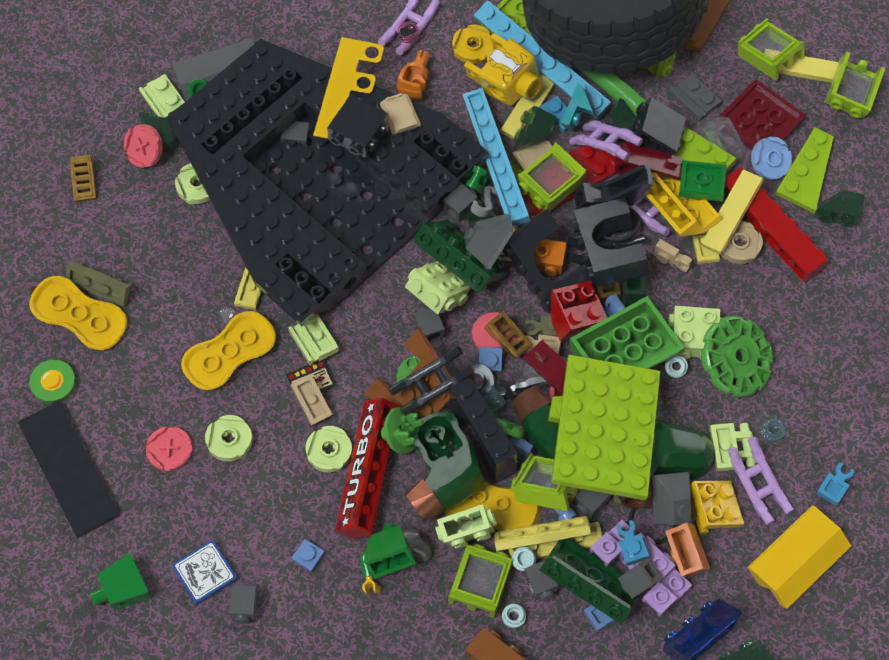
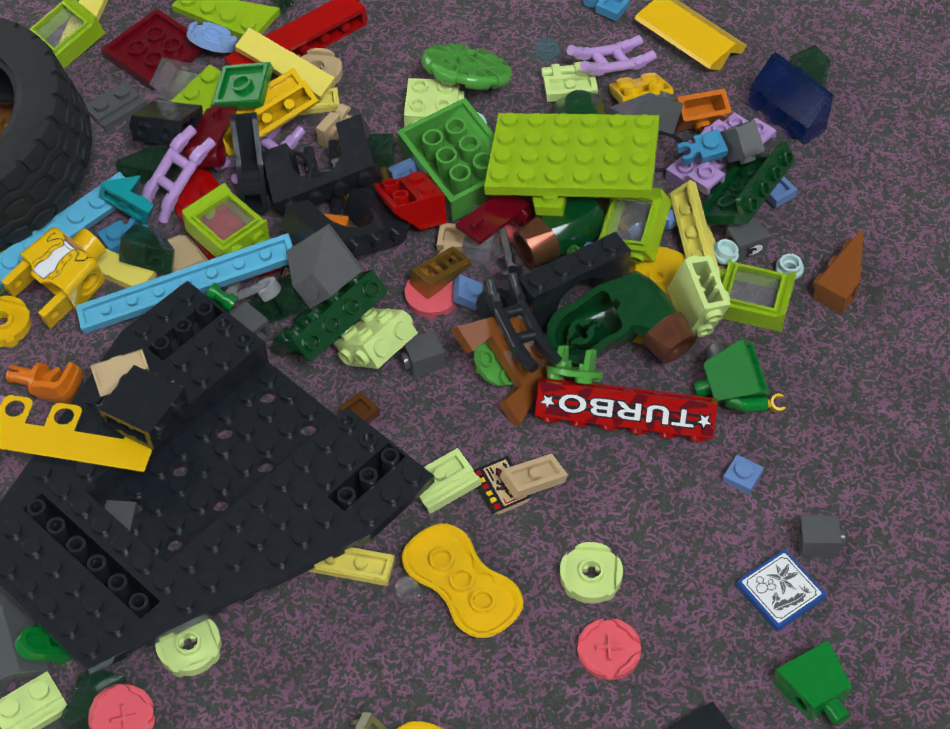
camera: 90 degrees left, 10 degrees down
(335, 460) = (599, 472): yellowish green plate -> none
(380, 282) = (362, 407): none -> reddish brown plate
(543, 327) = (422, 242): olive plate -> none
(616, 89) = (104, 166): bright green brick -> none

